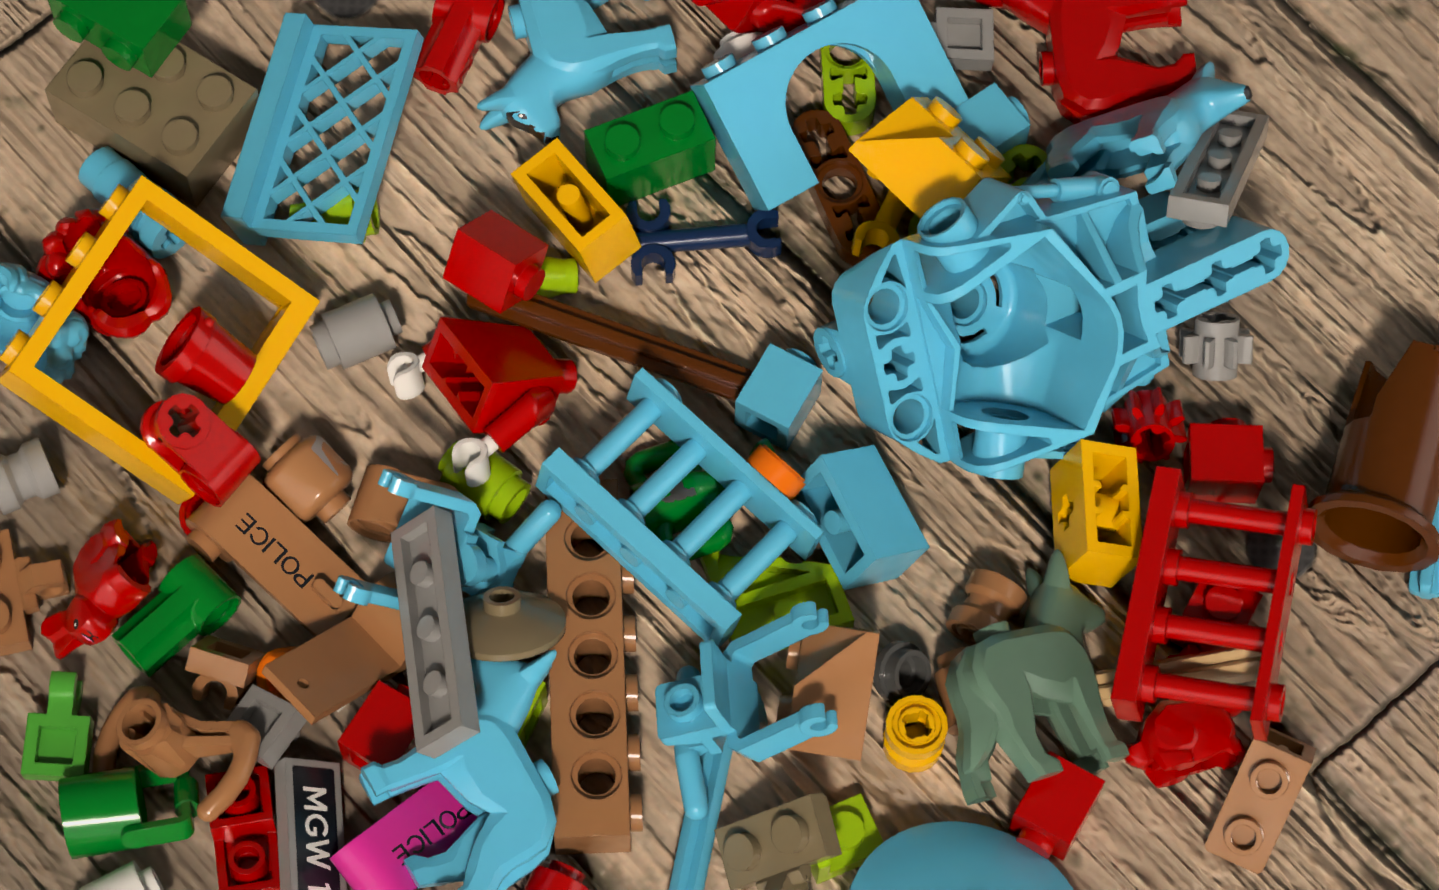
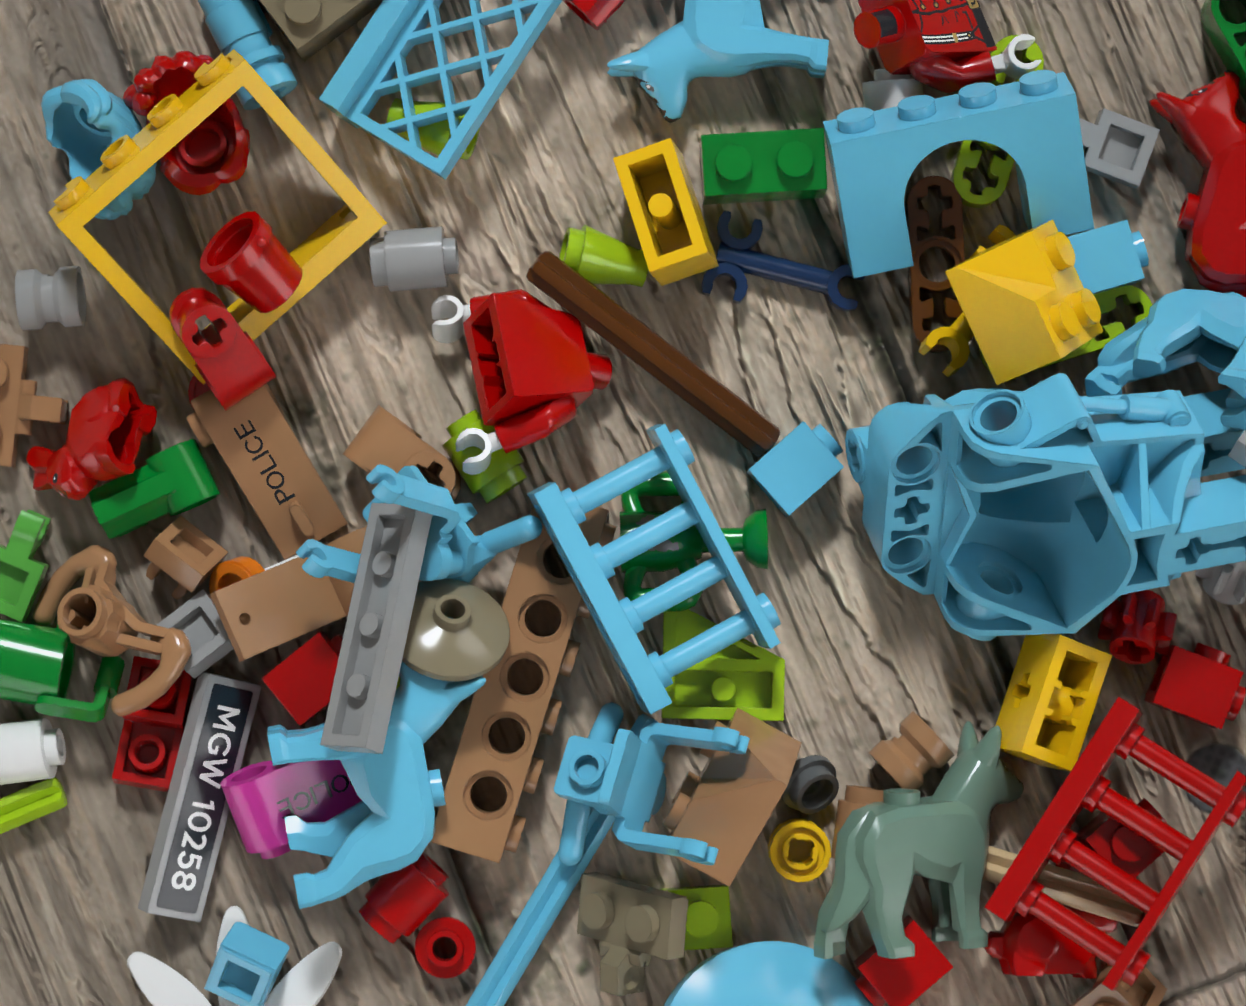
camera: 20 degrees right, 20 degrees up
(308, 478) = (319, 397): medium nougat head -> none
(496, 261) = (565, 257): red brick -> none
(776, 471) = (758, 563): orange tile -> none
(863, 517) = (825, 623): medium azure brick -> none

